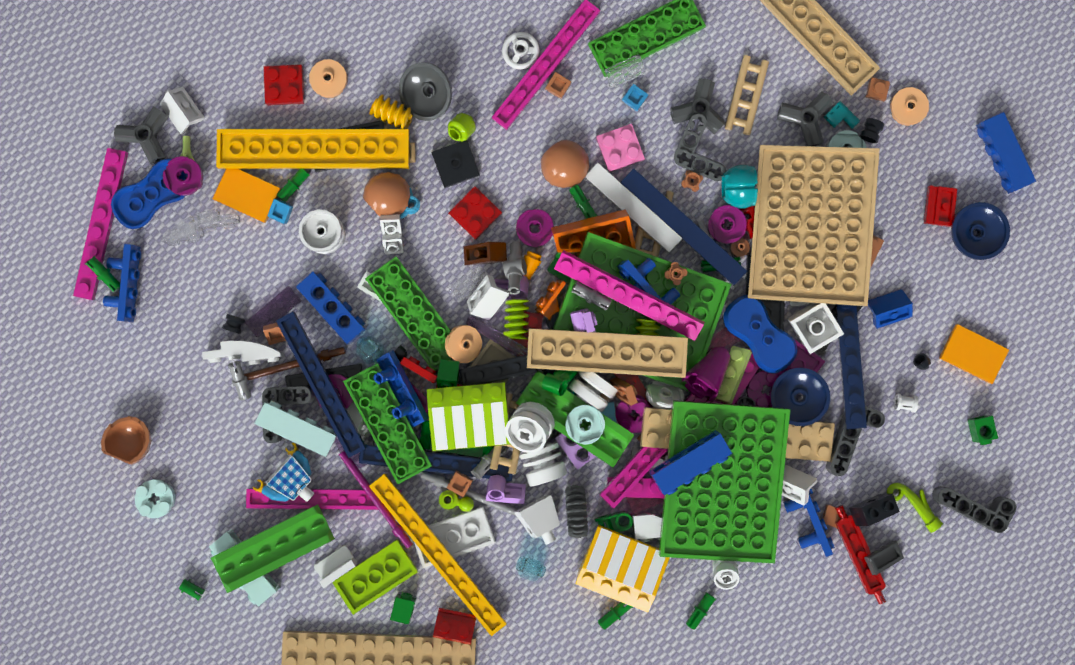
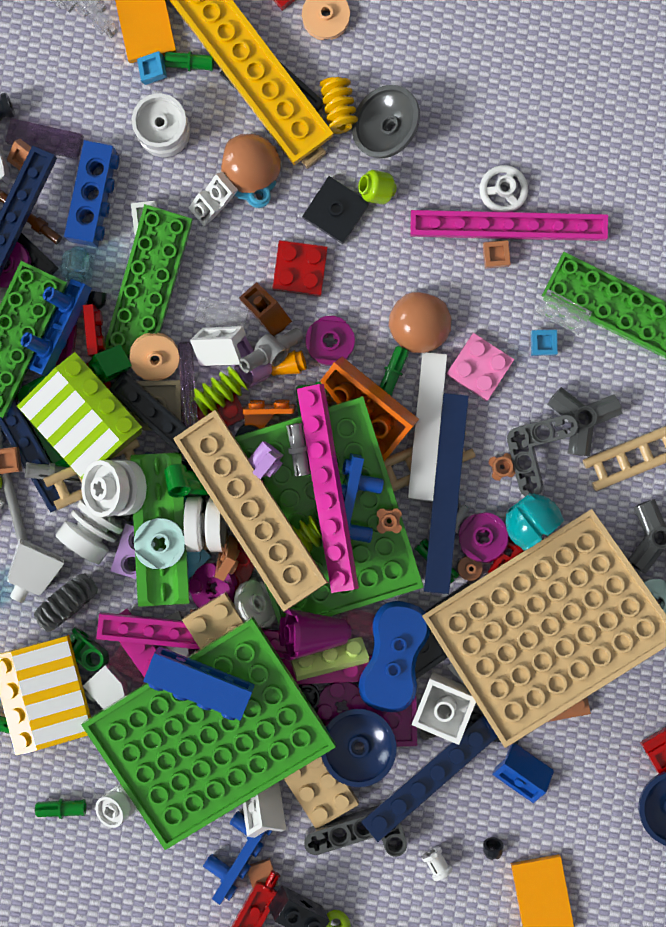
camera: 55 degrees right, 0 degrees up
(505, 492) = (31, 509): lavender plate -> none

